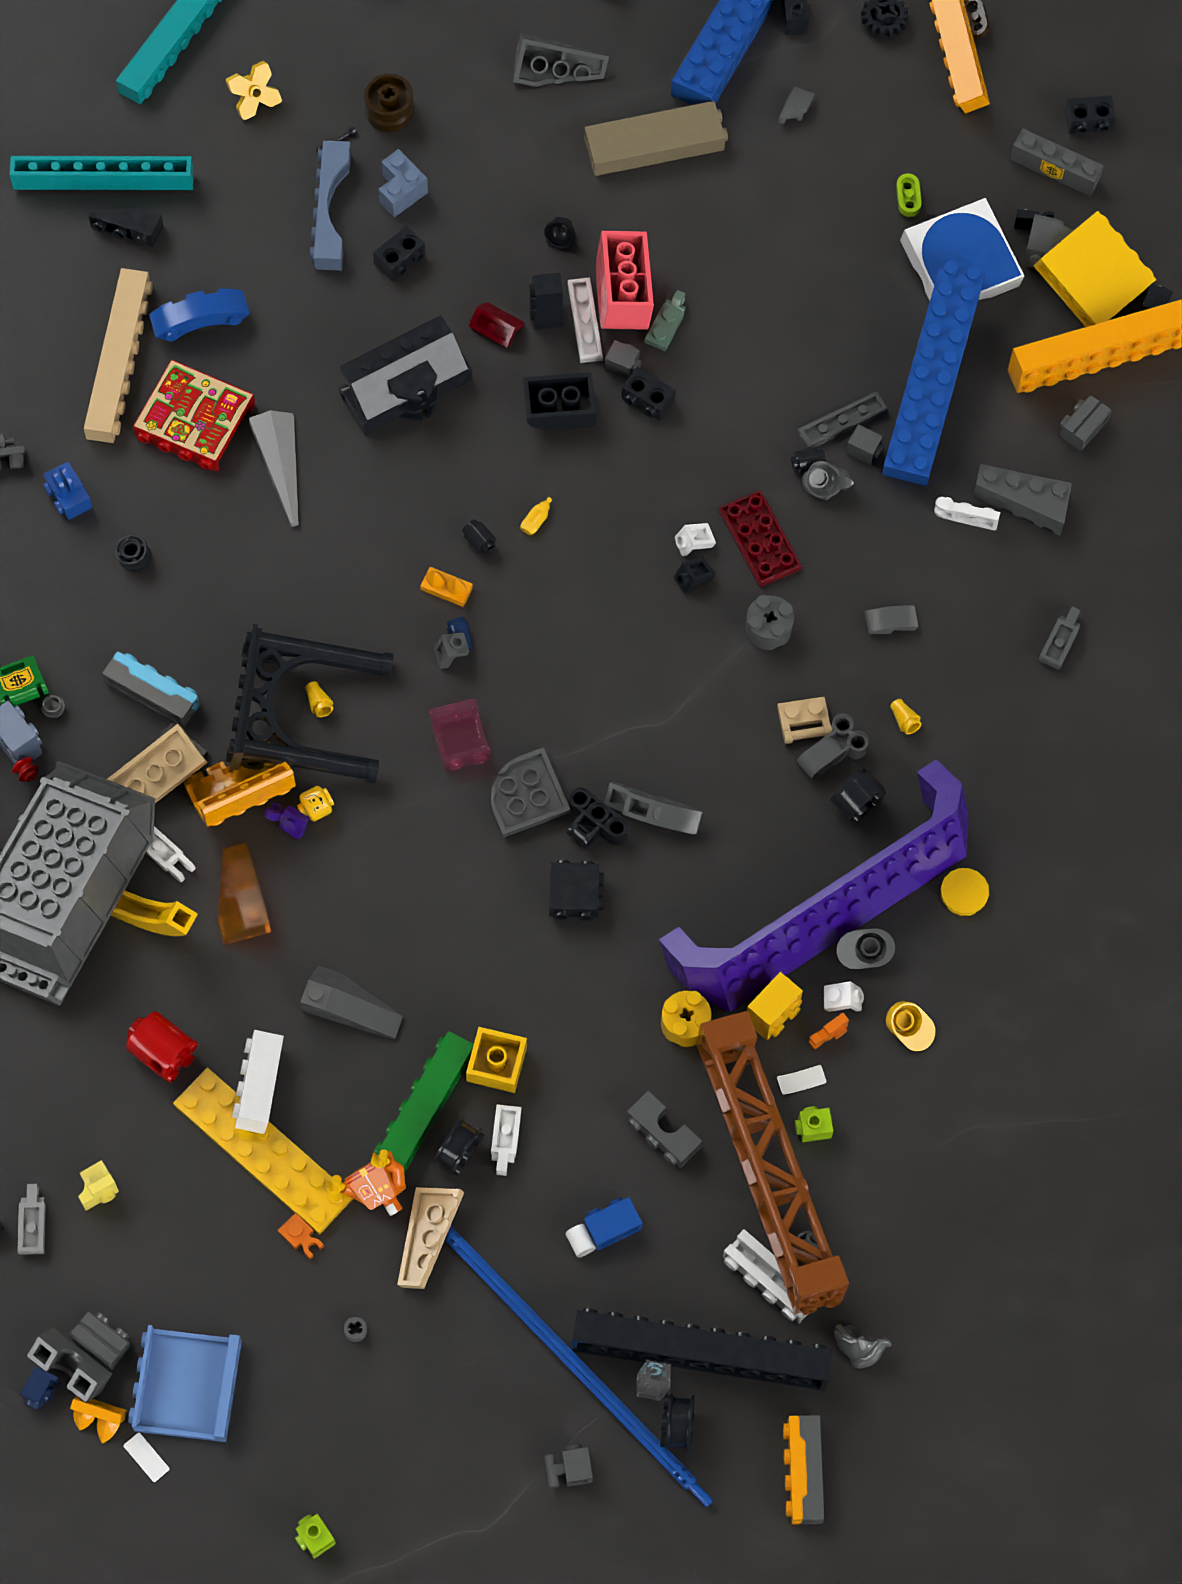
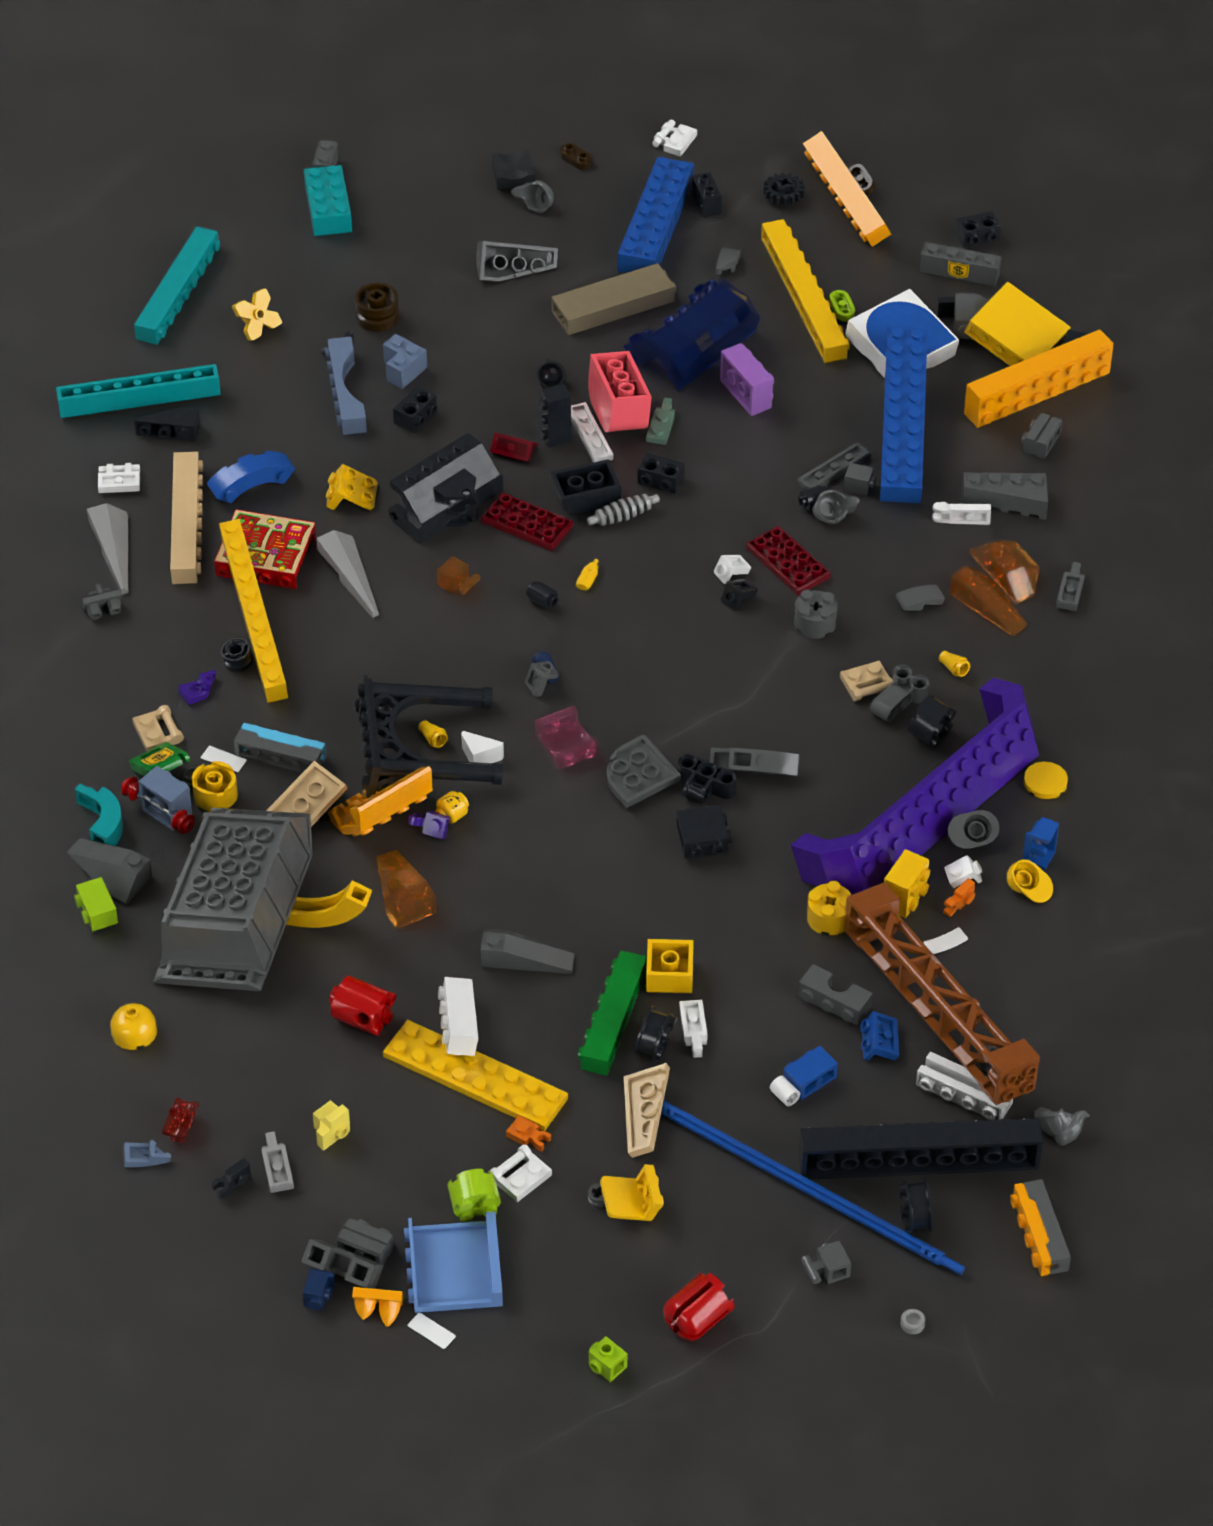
camera: 10 degrees left, 20 degrees down
(21, 636) = (151, 732): none -> tan plate
(34, 359) = (111, 531): none -> light grey wedge
(58, 291) = (119, 478): none -> white plate
(67, 490) = (166, 618): blue brick -> none
(80, 726) = (214, 786): none -> yellow brick
(83, 589) = (197, 690): none -> dark purple slope
(91, 685) = (214, 754): none -> white sticker
(159, 504) = (253, 611): none -> yellow brick
(167, 854) = (327, 869): white hinge -> none
(223, 1308) = (473, 1194): none -> lime brick
(285, 1291) = (525, 1178): none -> white plate
(305, 350) = (352, 486): none -> yellow bracket
(365, 733) = (481, 748): none -> white slope
(373, 1183) = (587, 1072): orange torso -> none
(386, 1342) = (633, 1197): none -> yellow bracket
(390, 491) = (455, 576): none -> clear orange brick
(418, 1499) = (697, 1307): none -> red cylinder
(446, 586) = (525, 637): light orange tile -> none
(487, 429) = (527, 521): none -> dark red tile
(567, 441) = (623, 509): none -> light grey piece
(622, 359) = (630, 452): dark grey brick -> none
(642, 1553) = (912, 1321): none -> light grey tile
(653, 1380) = (883, 1181): clear brick -> none
(698, 1193) = (880, 1036): none -> blue bracket
(734, 209) = (714, 309): none -> clear blue wedge
(773, 284) = (746, 379): none -> medium lavender brick
(814, 1124) = (968, 968): lime brick -> none
(871, 166) = (804, 291): none -> yellow brick
(934, 982) = (1041, 842): none -> blue window
(964, 632) = (986, 599): none -> clear orange wedge
(1000, 596) = (1008, 567): none -> clear orange wedge

